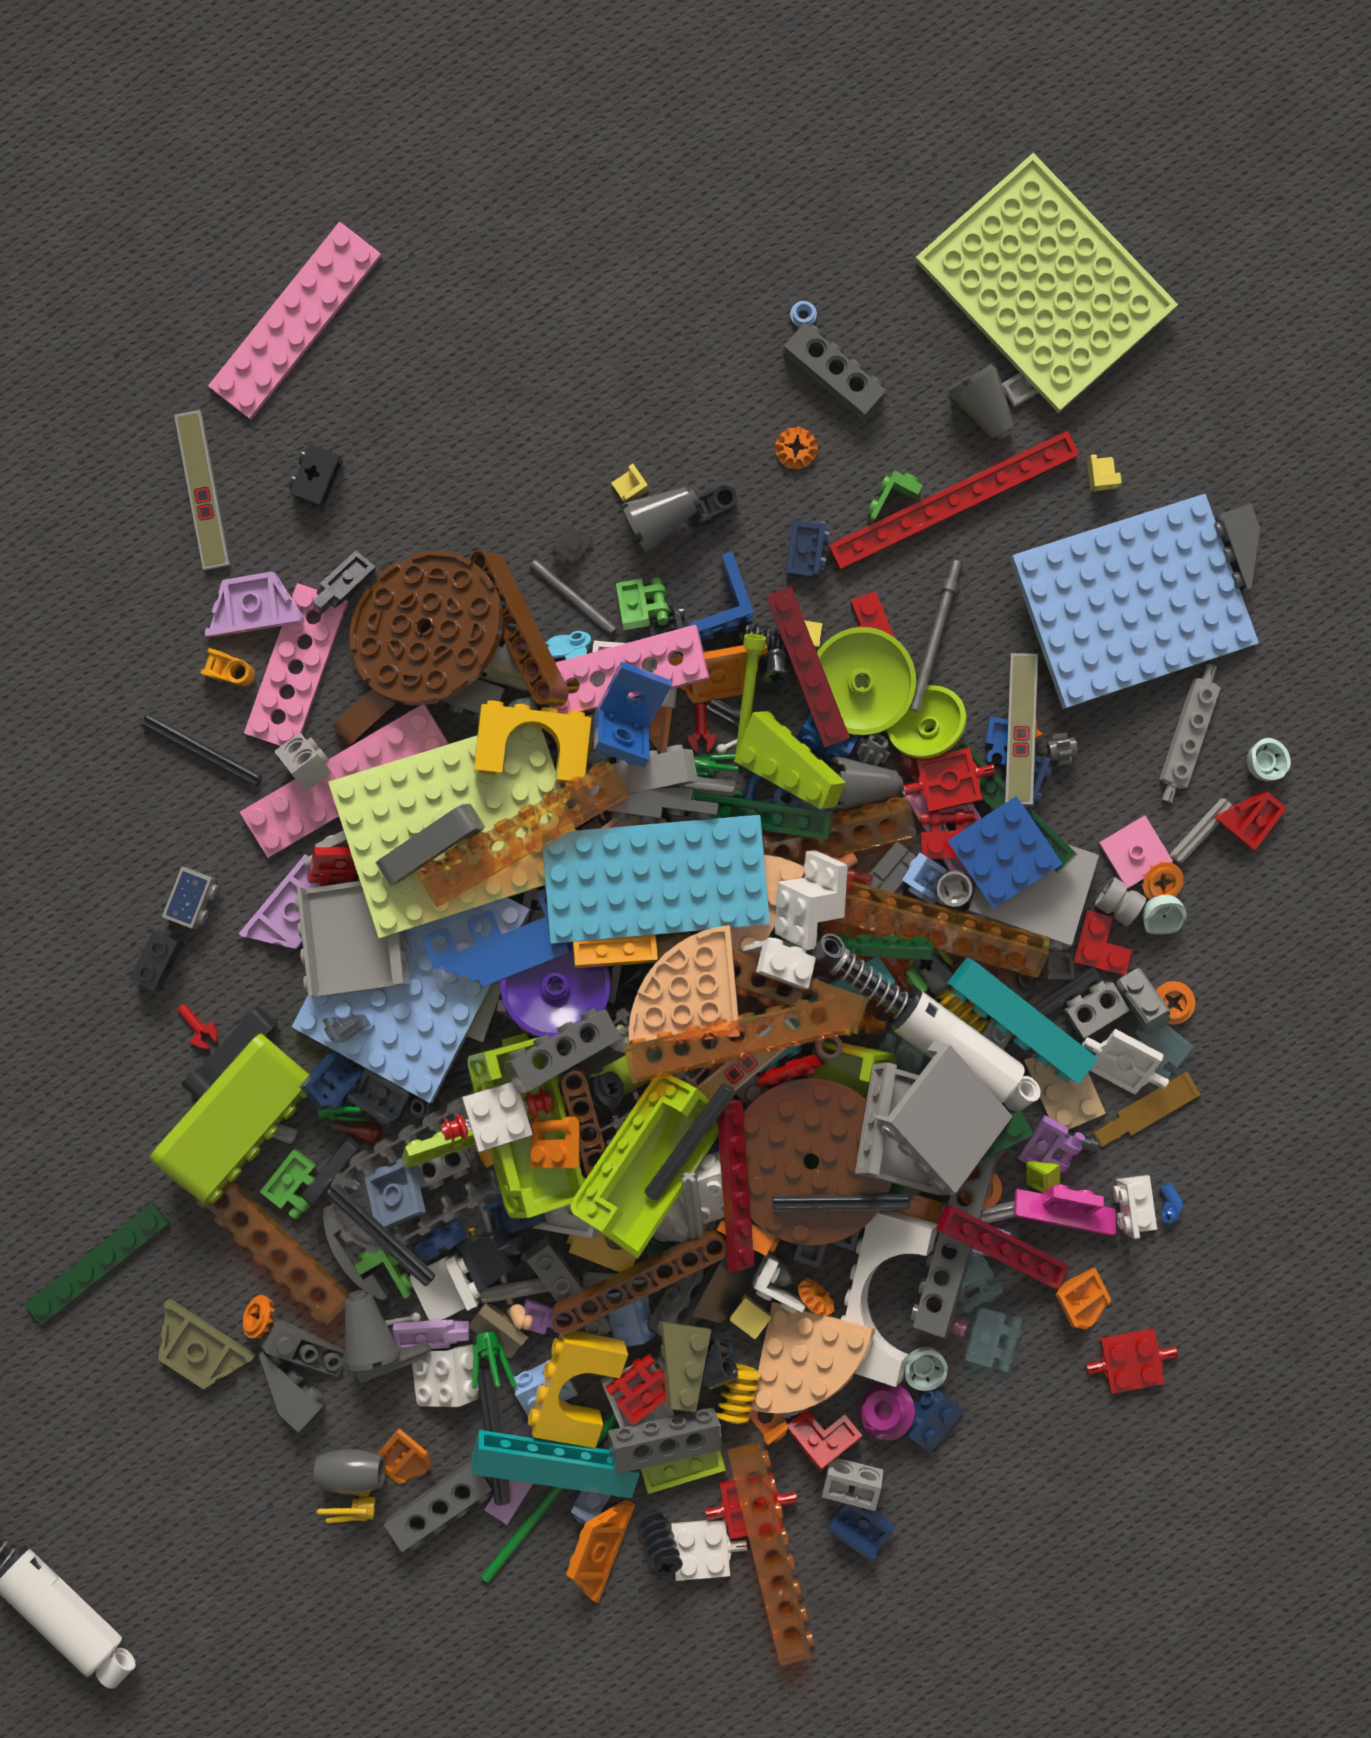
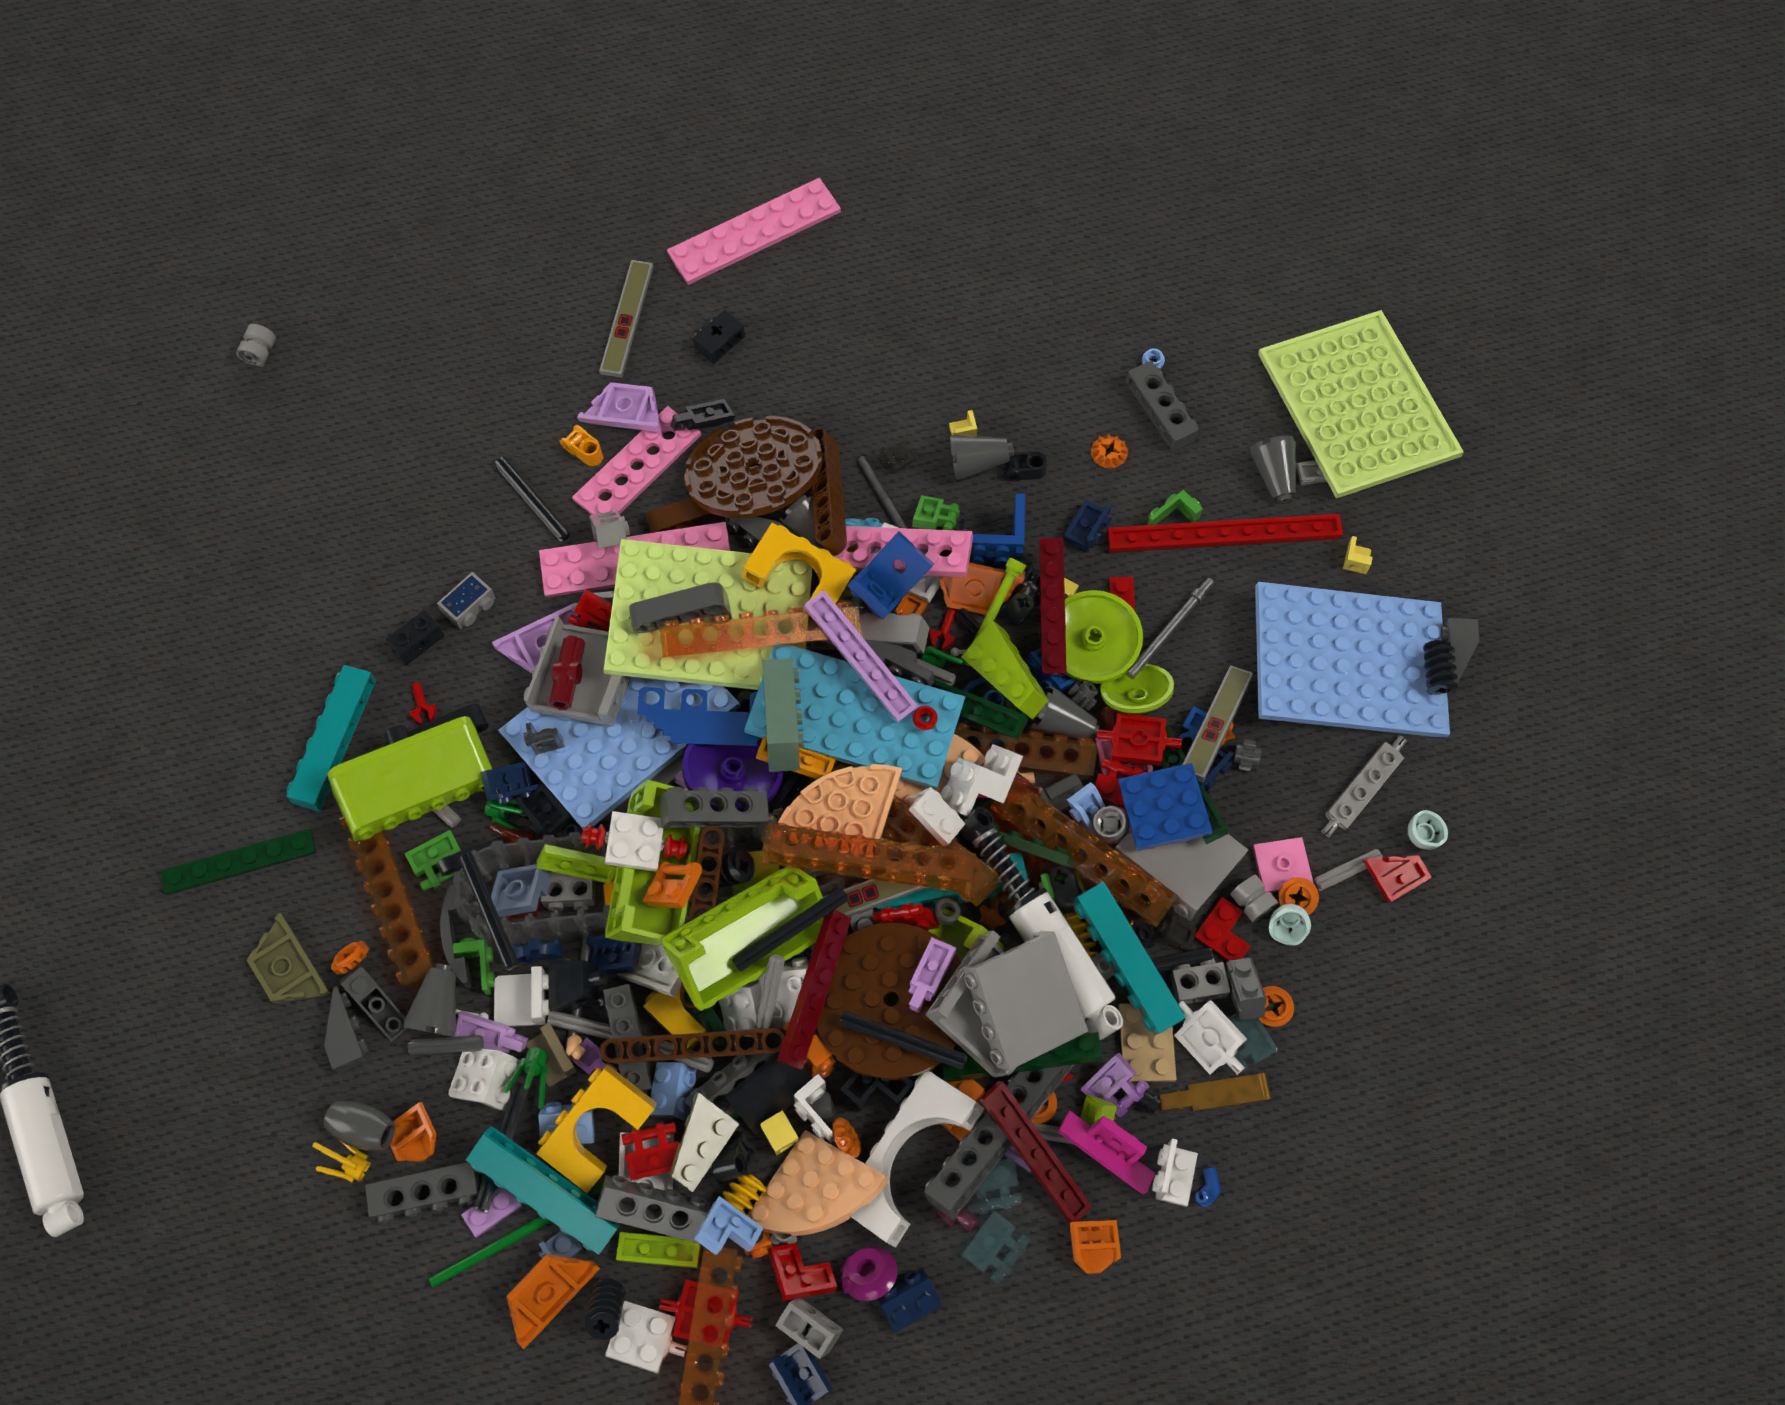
camera: 20 degrees right, 20 degrees down
(124, 1102) = (331, 737): none -> teal brick
(338, 947) = (567, 672): none -> dark red piece
(584, 918) = (781, 714): none -> sand green wedge
(639, 824) = (860, 656): none -> lavender plate
(737, 853) = (925, 711): none -> red plate
(740, 1429) = (727, 1222): none -> light blue plate
(841, 1126) = (930, 972): none -> lavender hinge
(923, 1366) = (921, 1247): light aqua helmet -> none
(1132, 1361) = (1120, 1323): red plate -> none
(1230, 578) = (1439, 668): none -> black piece

